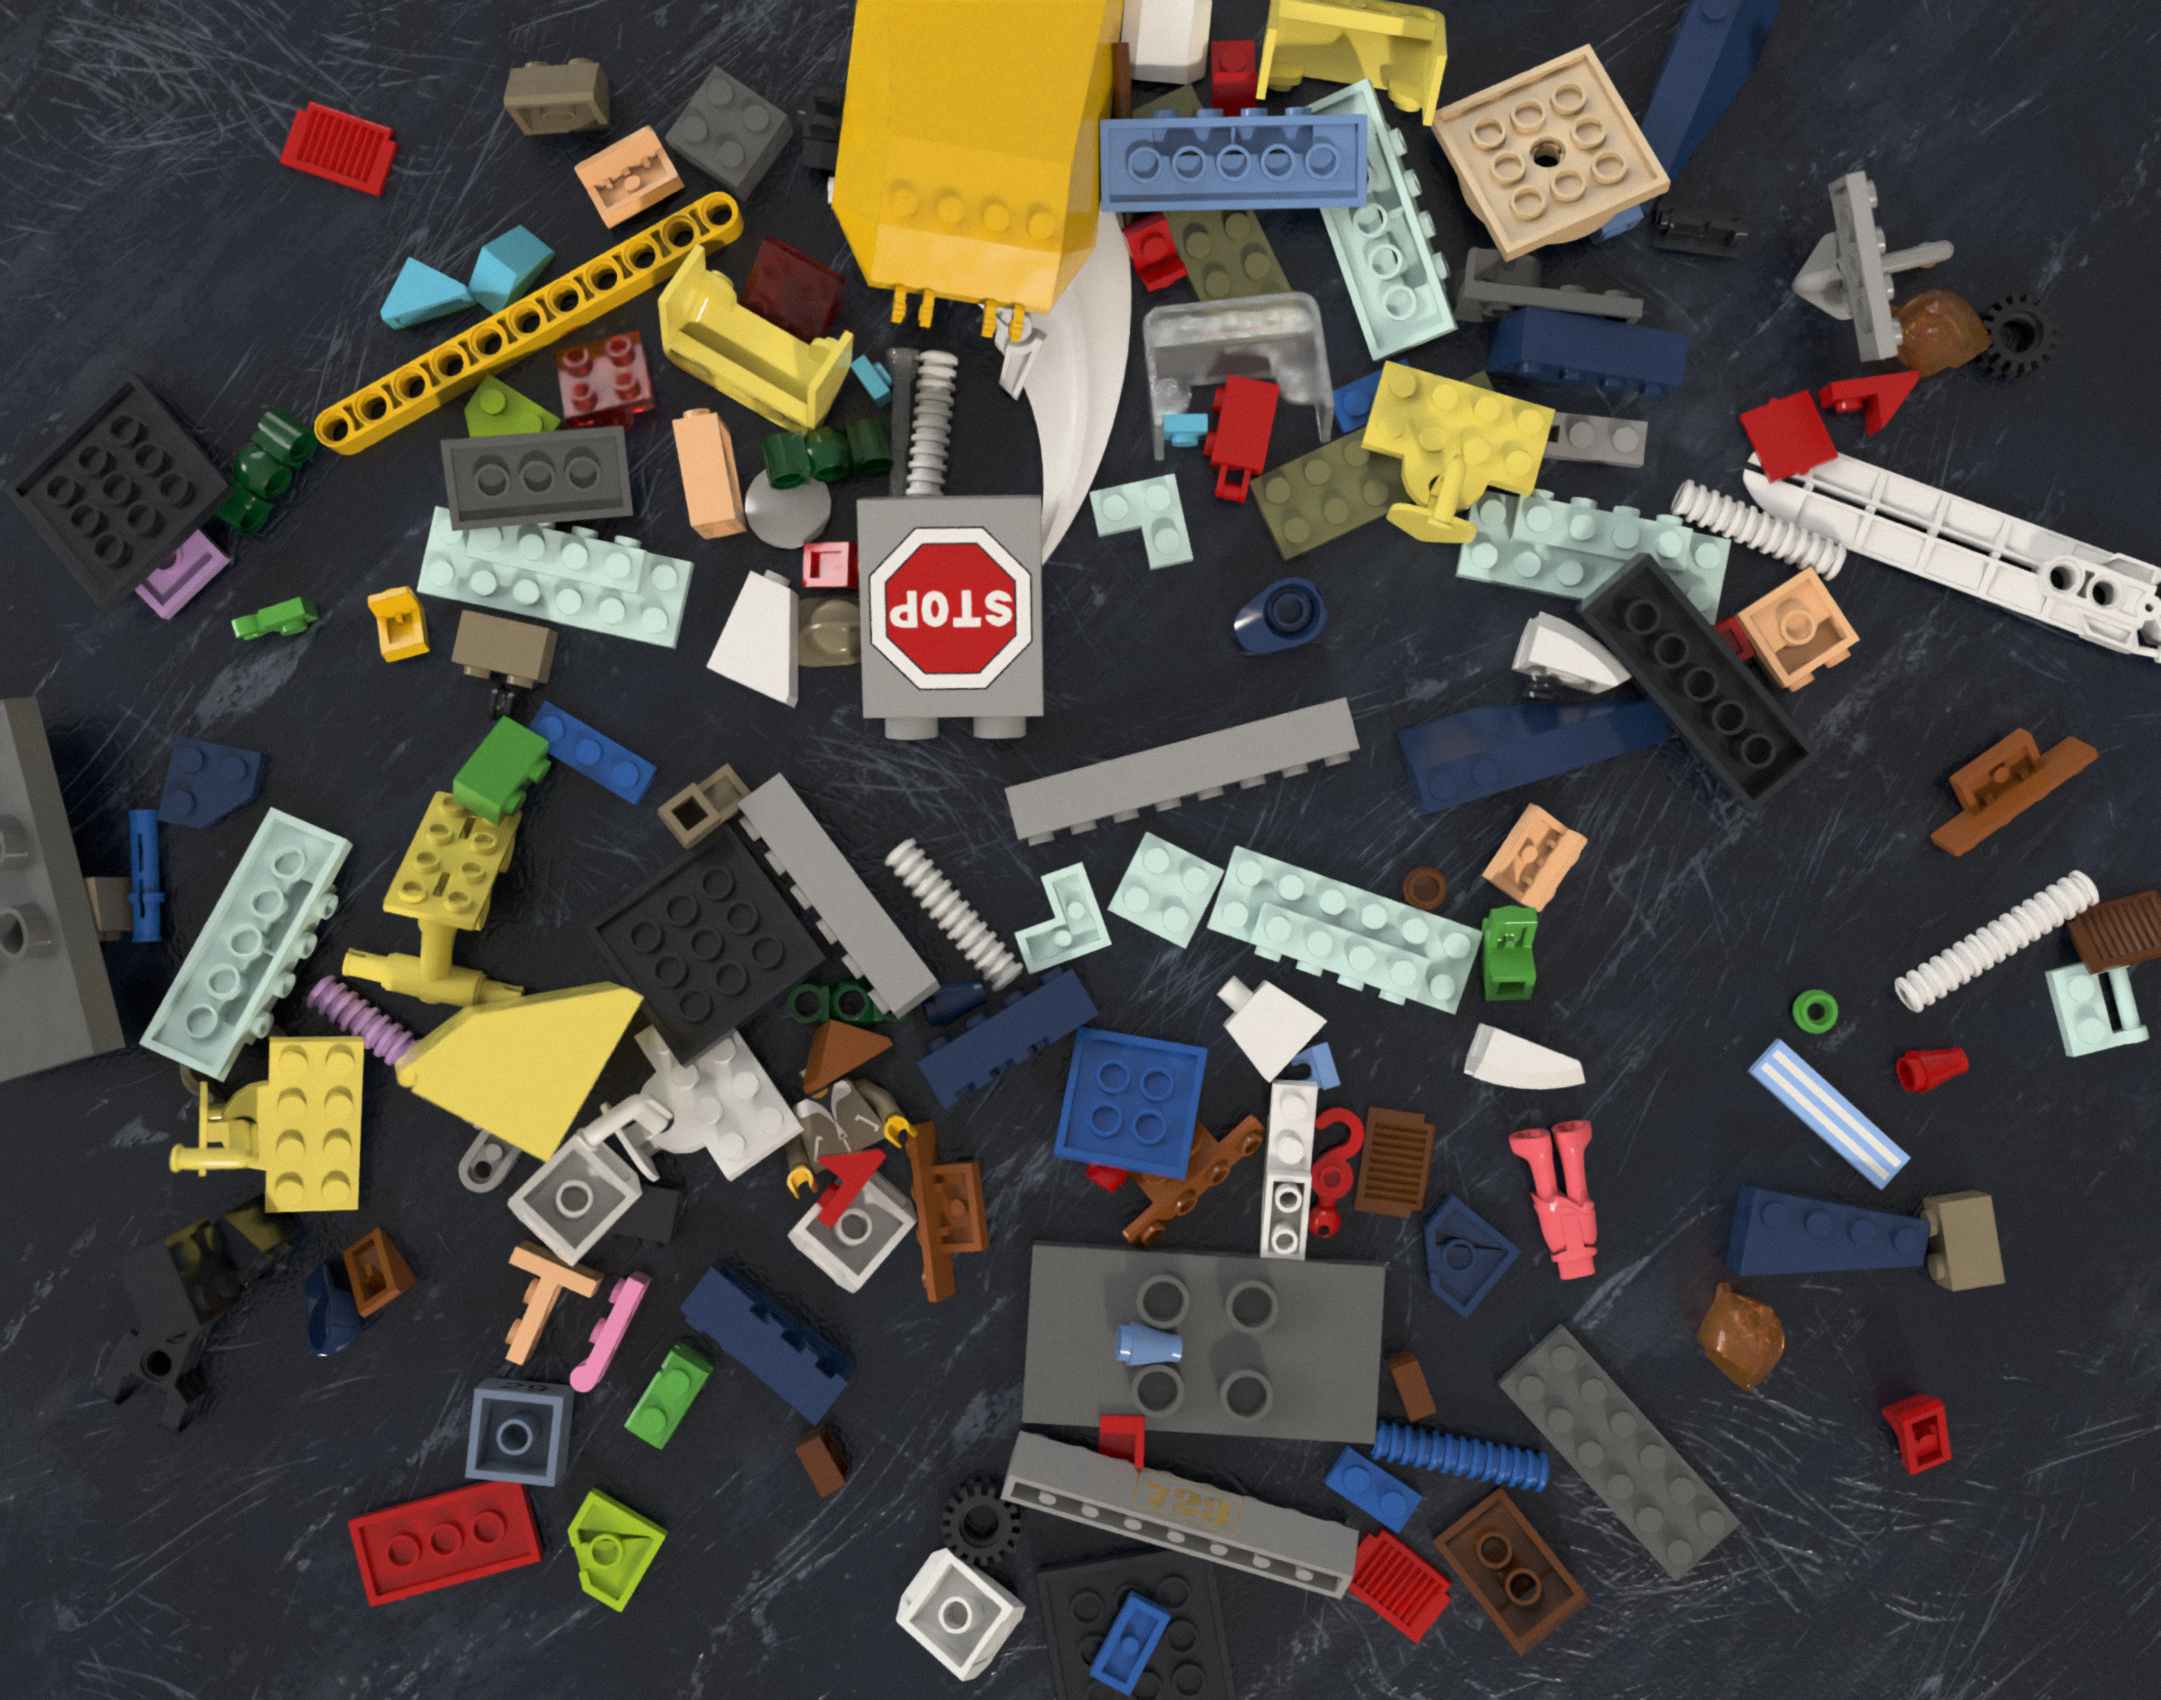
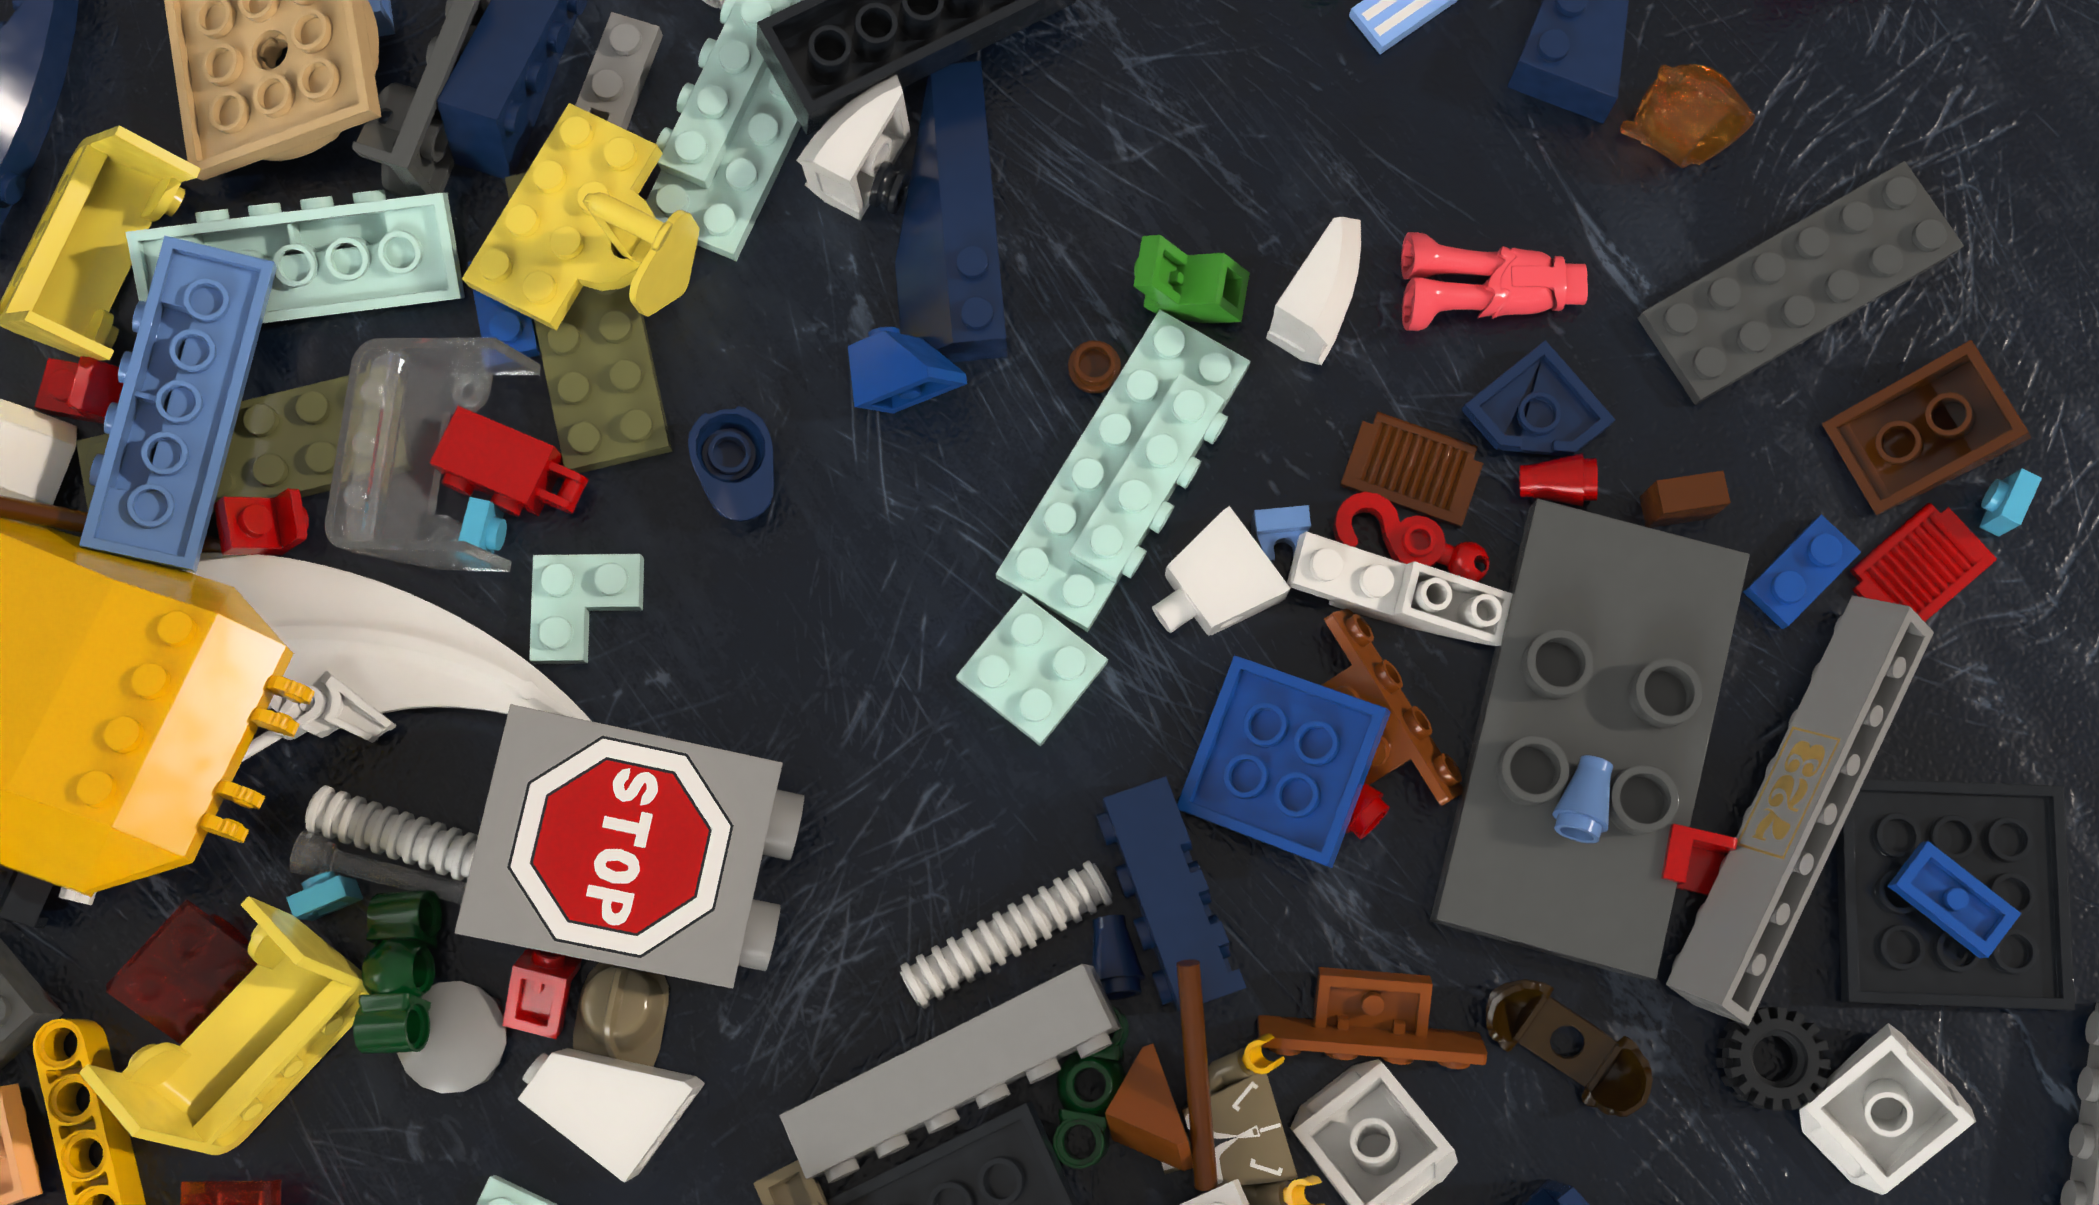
camera: 70 degrees left, 10 degrees down
(709, 474) = (382, 1126): light nougat window -> none
(854, 1170) = (1303, 1121): red slope -> none
(873, 1084) = (1197, 1074): none -> reddish brown bar
(947, 1397) = (1612, 1071): none -> dark brown piece
(1076, 924) = (1052, 784): light aqua plate -> none
(1182, 769) = (890, 622): light grey brick -> none
(1385, 732) = (898, 371): none -> blue slope
(1407, 1283) = (1561, 480): none -> red cone
(1460, 1456) = (1779, 459): blue piece -> none
(1463, 1645) = (2008, 501): none -> medium azure plate
(1534, 858) = (1085, 233): light nougat bracket -> none

